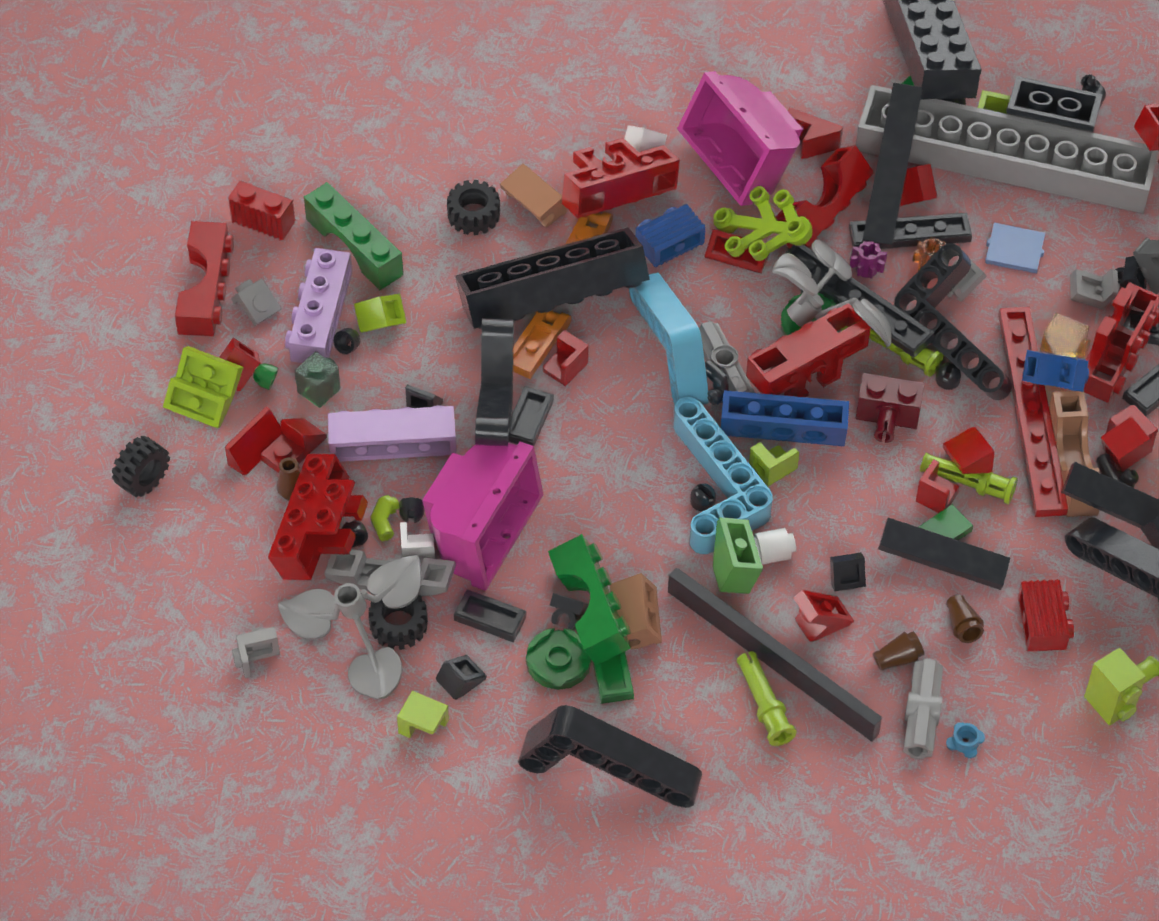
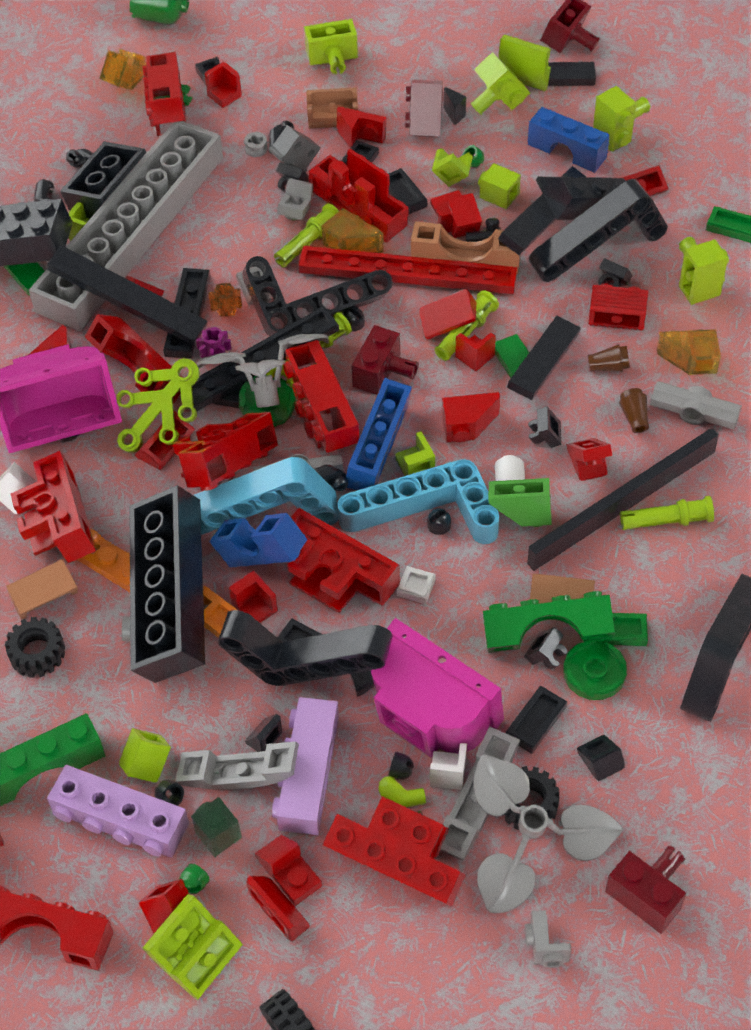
camera: 75 degrees left, 0 degrees up
(256, 300) = (86, 876): light grey bracket -> none
(287, 477) = (340, 873): reddish brown cone -> none
(319, 722) = (647, 888): none -> dark red brick
(378, 377) = (238, 771): none -> light grey slope
(422, 714) = (652, 793): lime panel -> none
(615, 337) = (273, 541): none -> blue arch
(617, 410) = (338, 566): none -> red piece
(621, 491) = (416, 585): none -> white tile
(670, 234) = (130, 480): blue brick -> none
(714, 289) = (225, 449): none -> red piece
(840, 496) = (468, 415): none -> red slope
(969, 732) = (727, 385): dark azure plate -> none
(1001, 697) = (691, 350): none -> clear yellow slope
(1015, 248) = (228, 247): medium blue piece -> none
(1033, 69) = (42, 189): none -> black arm
(1047, 308) = (309, 234): none -> lime pin
(1055, 370) = (390, 230): blue brick -> none
(1094, 606) = (614, 272): none -> black tile

